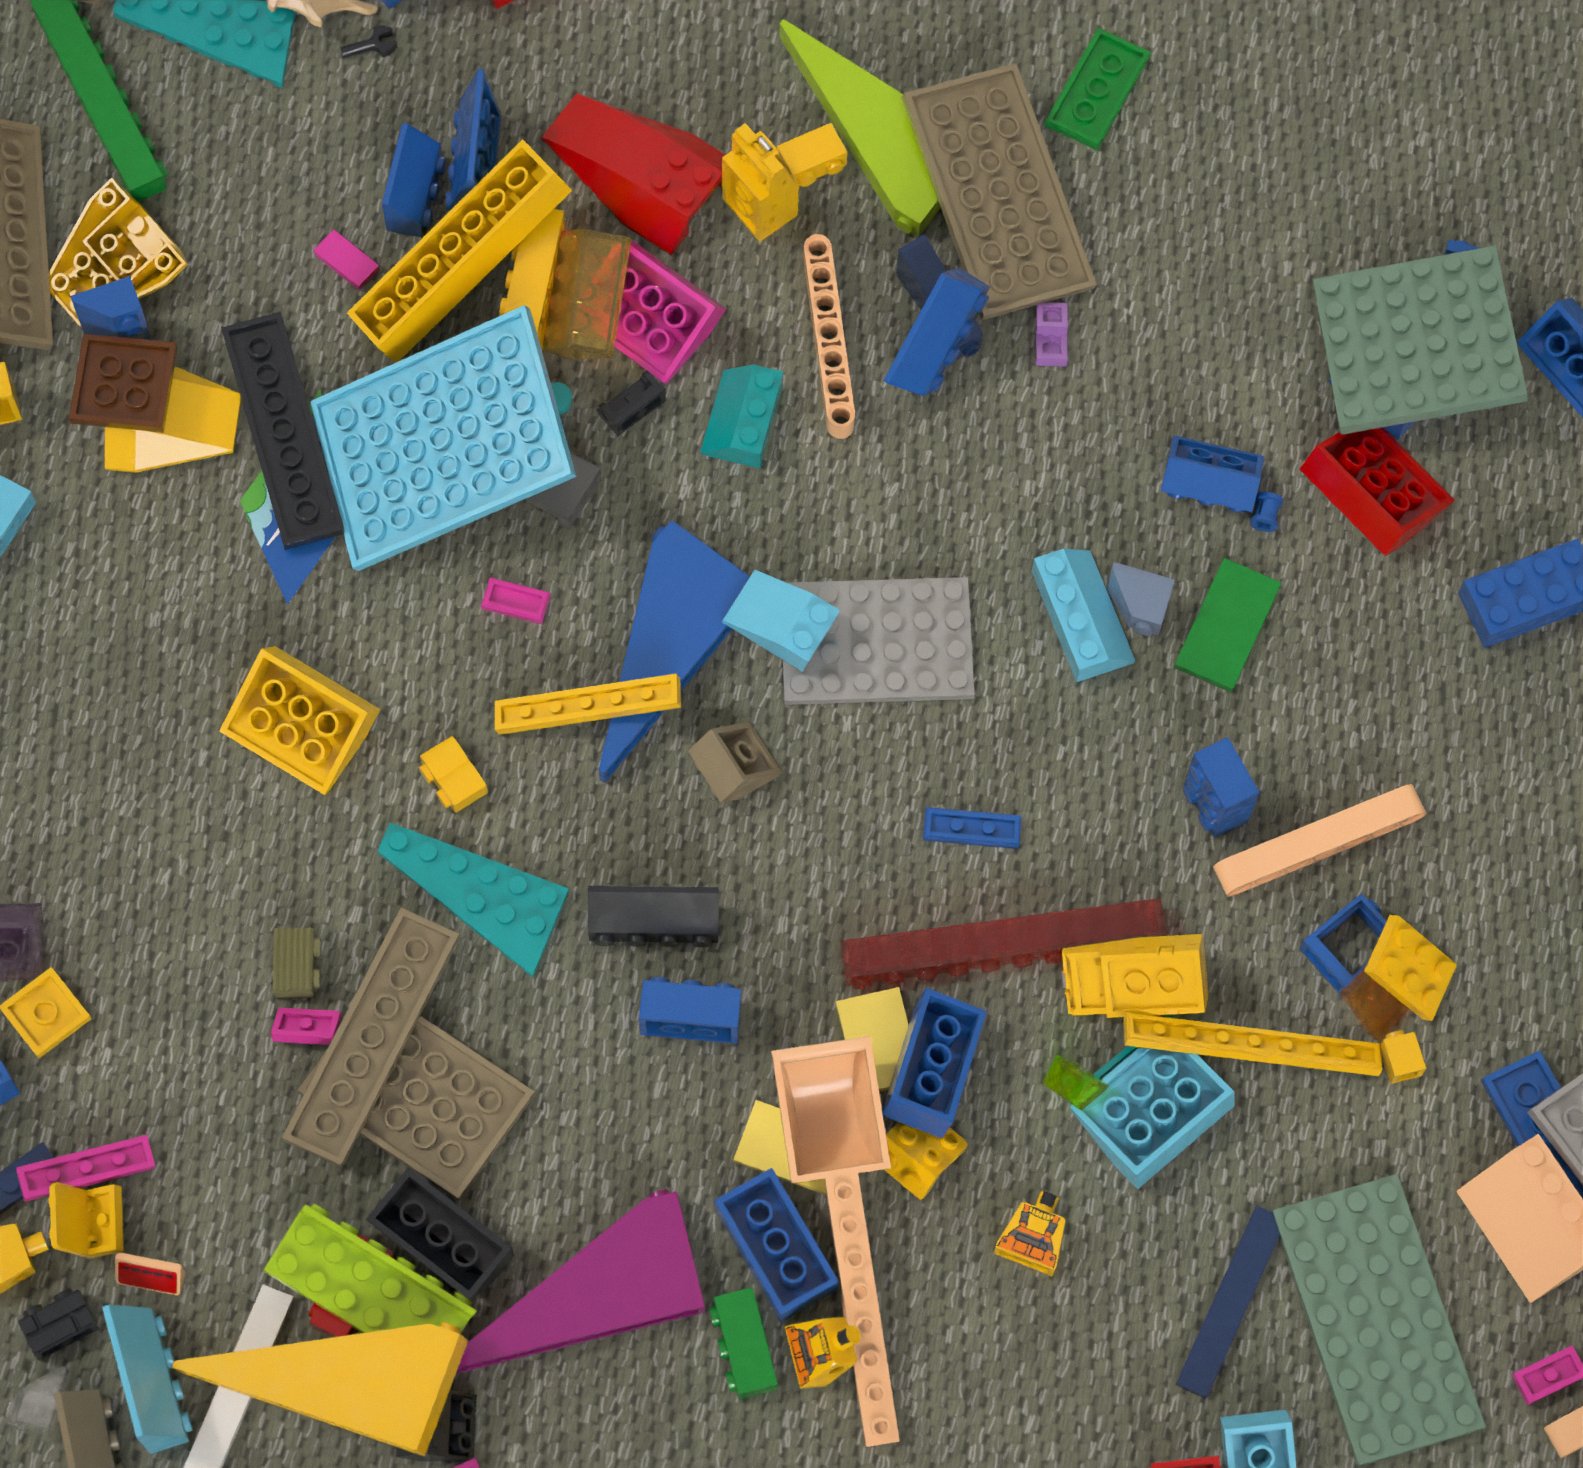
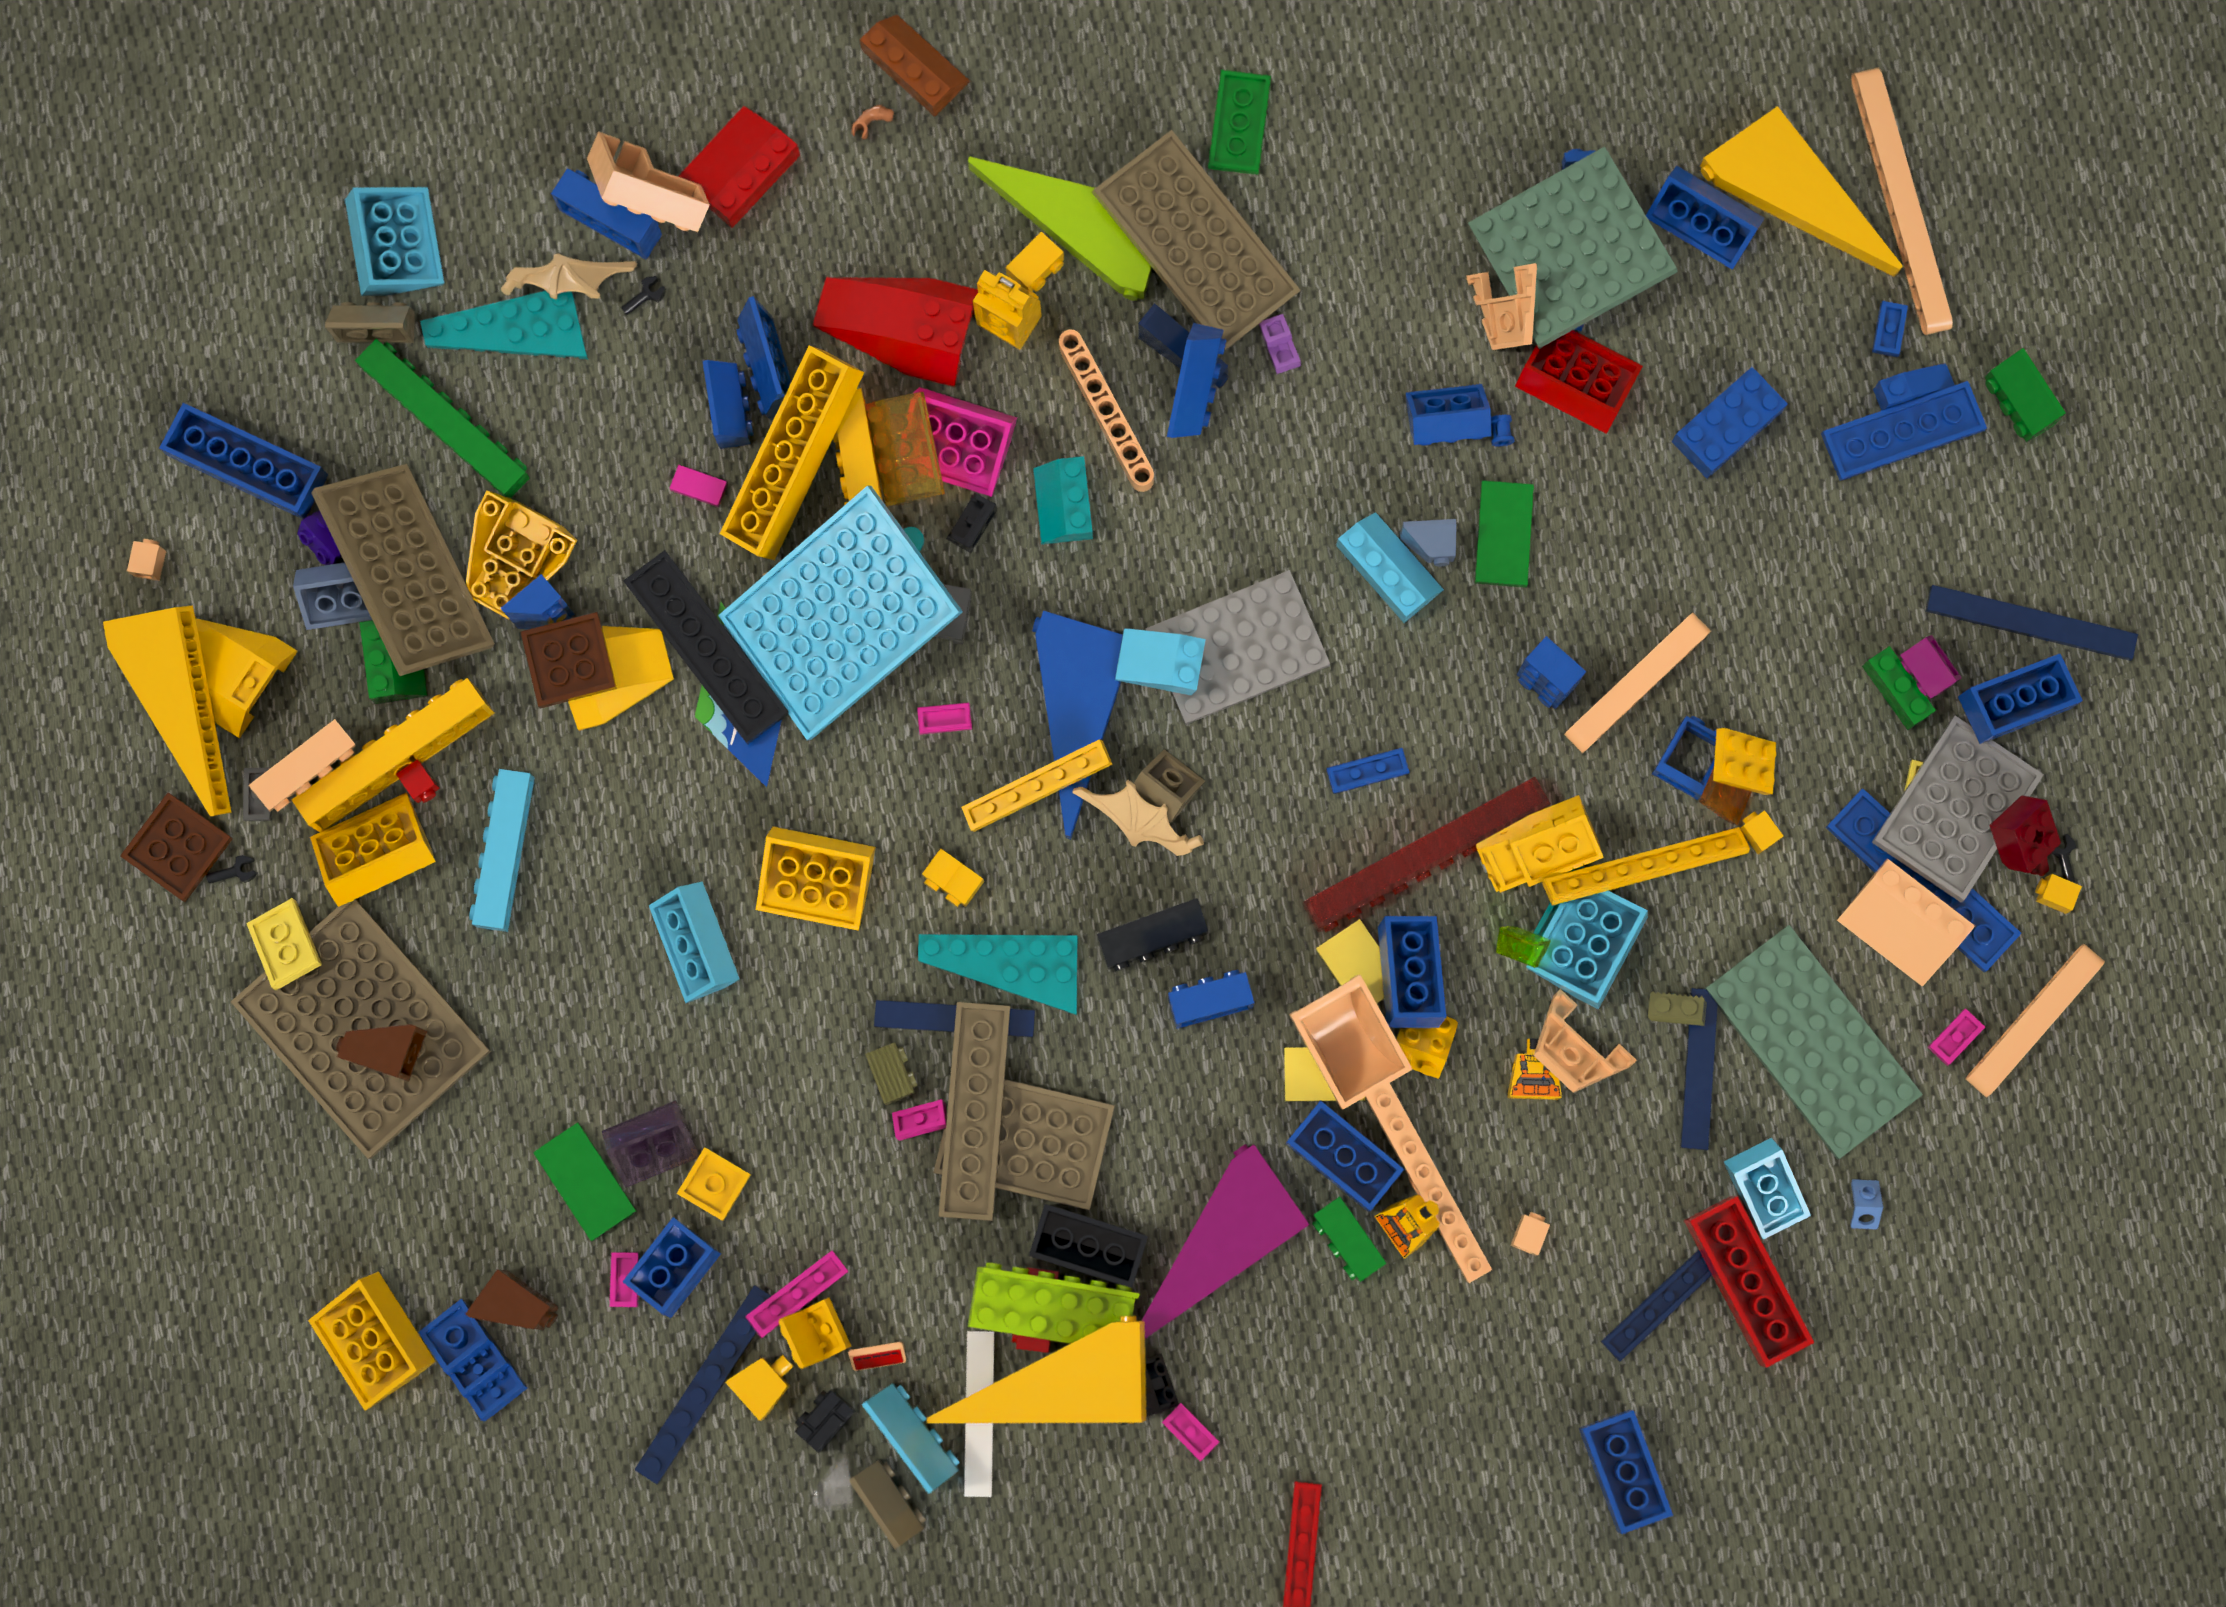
camera: 15 degrees left, 10 degrees up
(135, 738) = (693, 941): none -> medium azure slope
(374, 923) = (940, 1017): none -> dark blue tile
(690, 784) = (1140, 819): none -> tan animal
(960, 1416) = (1530, 1233): none -> light nougat brick
(1084, 1227) = (1570, 1055): none -> light nougat wing
(1229, 1219) = (1677, 1009): none -> olive brick
(1322, 386) = (1507, 318): none -> light nougat wing

